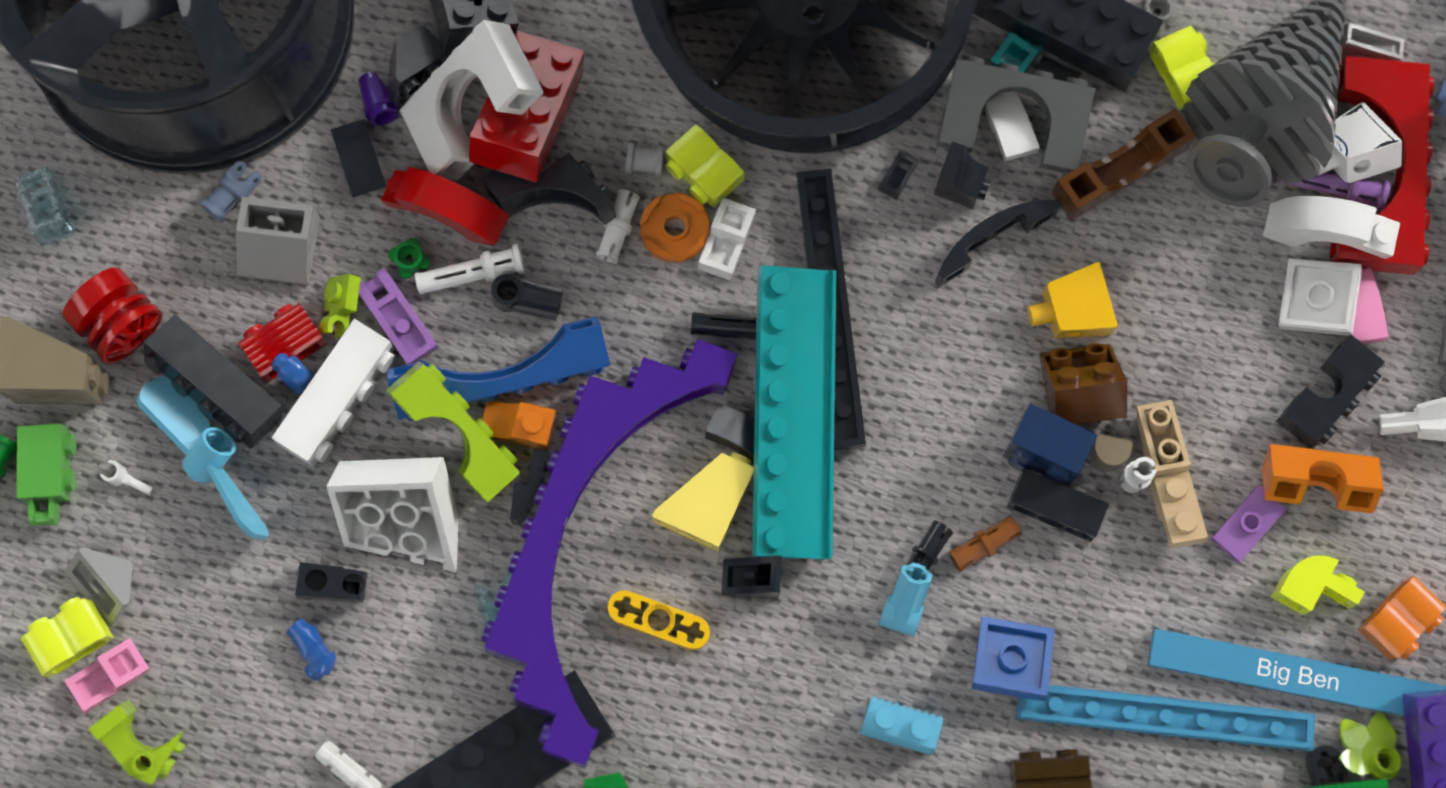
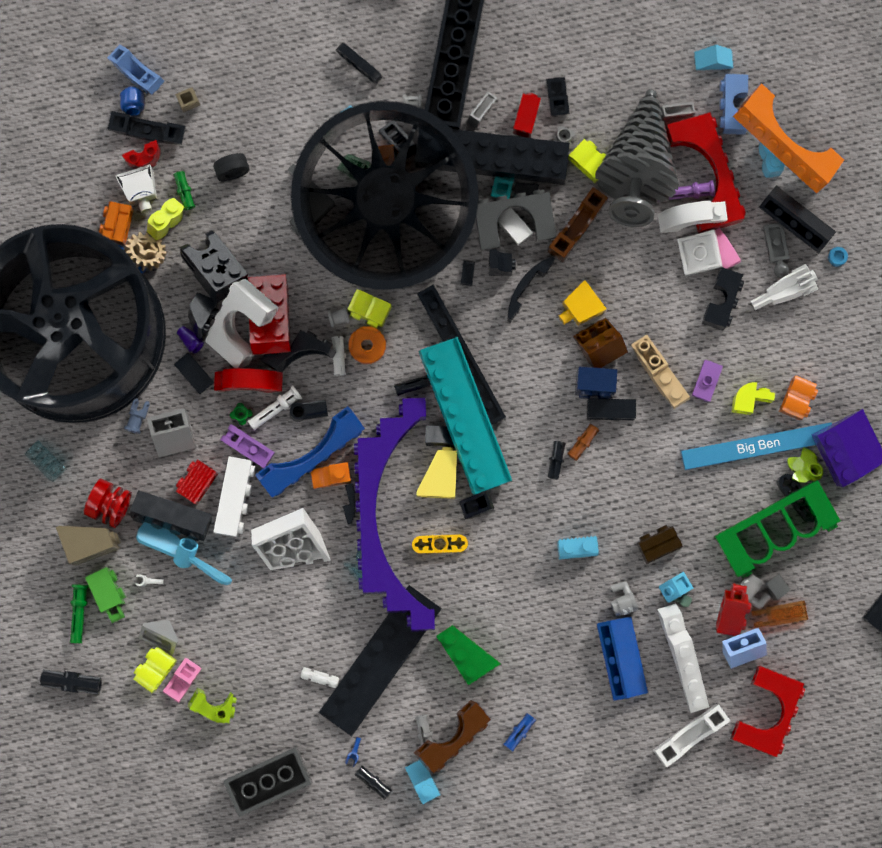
camera: 20 degrees left, 5 degrees up
(292, 372) = (210, 495): blue arm -> none
(311, 647) = (277, 626): blue arm -> none
(330, 583) = (272, 591): black leg -> none
(340, 300) = (216, 449): lime plate -> none
(483, 464) = (322, 502): lime arch -> none
(726, 239) = (395, 340): white slope -> none
(905, 605) = (556, 488): medium azure piece -> none
(1013, 659) = (618, 493): plate -> none
(1110, 452) = (626, 373): dark tan brick -> none
(1138, 474) = (644, 375): white pin -> none
(1171, 717) = (702, 491): dark azure tile -> none
(1349, 477) = (746, 338): orange arch -> none
(1363, 146) = (692, 168): white torso -> none

